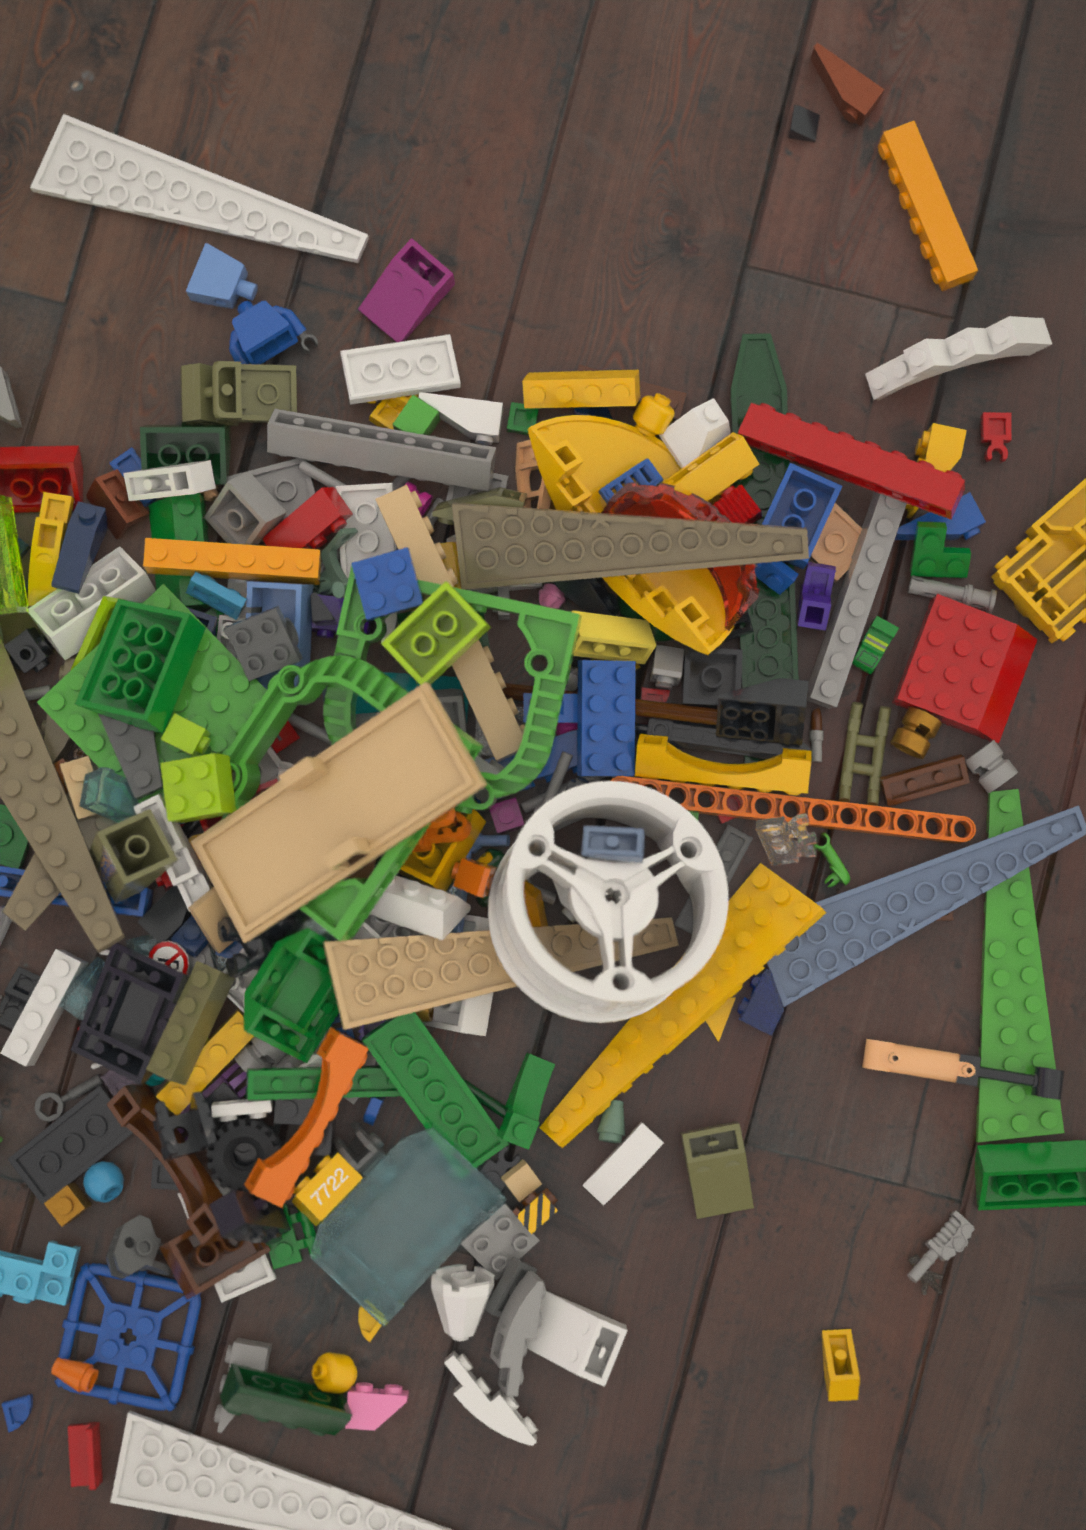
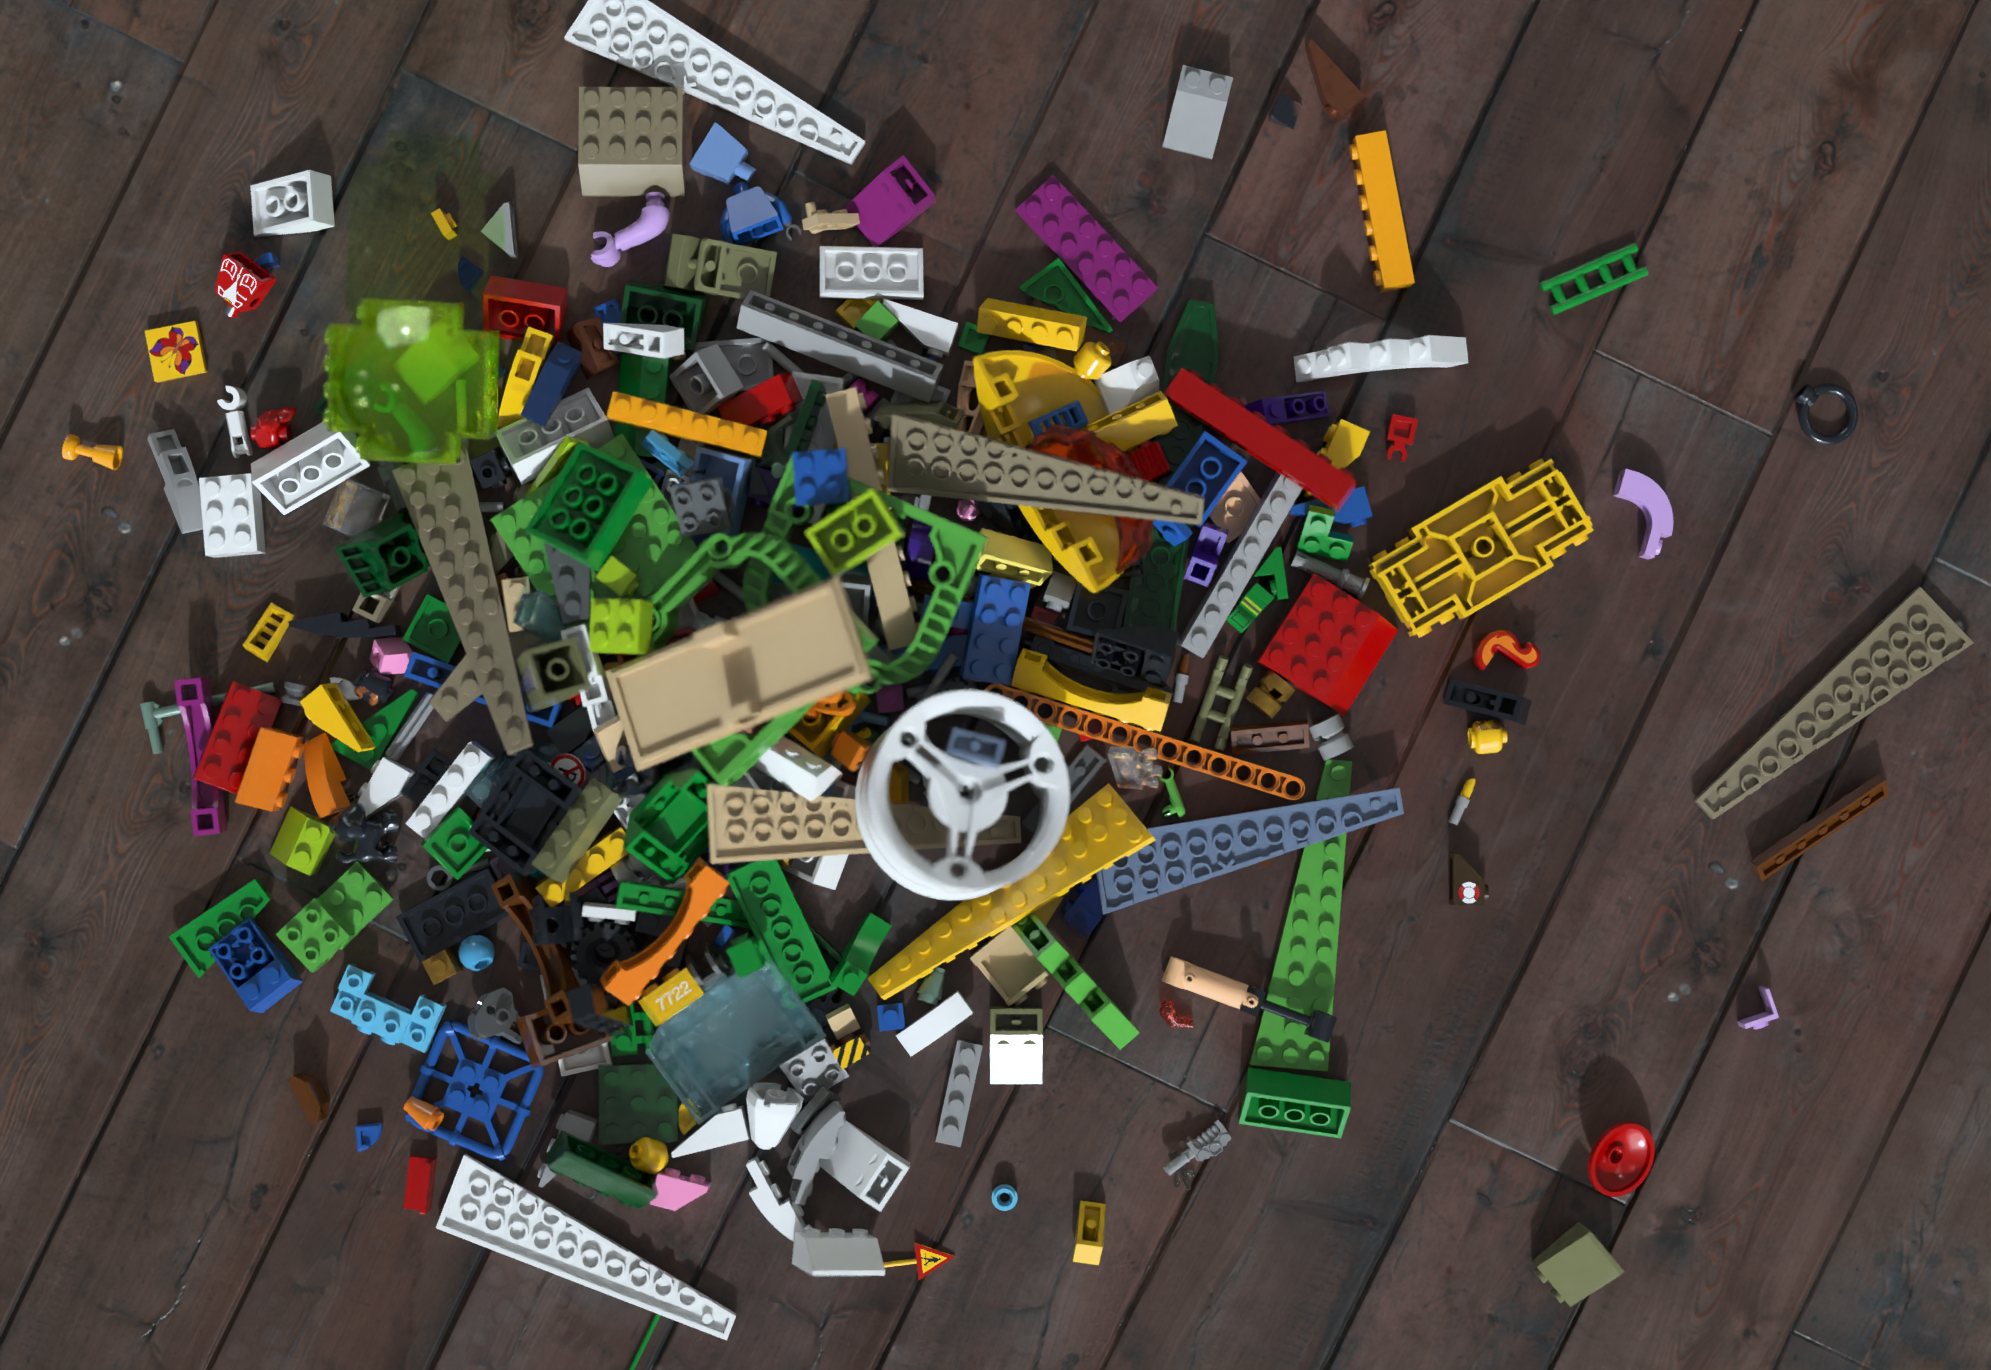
camera: 10 degrees right, 5 degrees up
(56, 1066) = (453, 845): none -> green plate
(121, 280) = (632, 141): none -> dark tan slope
(155, 363) = (649, 225): none -> lavender piece
(309, 1318) = (635, 1104): none -> dark green plate
(336, 323) = (821, 220): none -> tan plate
(361, 528) = (807, 419): none -> dark green wing
(402, 1126) = (746, 955): none -> green arch
(409, 1328) = (720, 1130): none -> white slope
(509, 649) = (920, 551): none -> dark purple brick
(565, 1443) = (837, 1253): none -> white slope
(573, 1165) = (891, 1016): none -> blue plate
(604, 350) = (1061, 291): none -> green wing
(623, 304) = (1086, 249): none -> magenta plate
(664, 1236) = (959, 1093): none -> light grey plate
(665, 1431) = (926, 1260): none -> piece
(693, 1083) = (1010, 966): none -> tan panel
(712, 140) = (1197, 112): none -> light grey slope
(744, 1350) = (1004, 1205): none -> medium azure plate
(769, 1084) = (1075, 980): none -> bright green arch
(878, 425) = (1291, 408): none -> dark purple slope
(882, 1107) = (1172, 1018): none -> clear red arm
(893, 598) = (1274, 567): none -> green slope

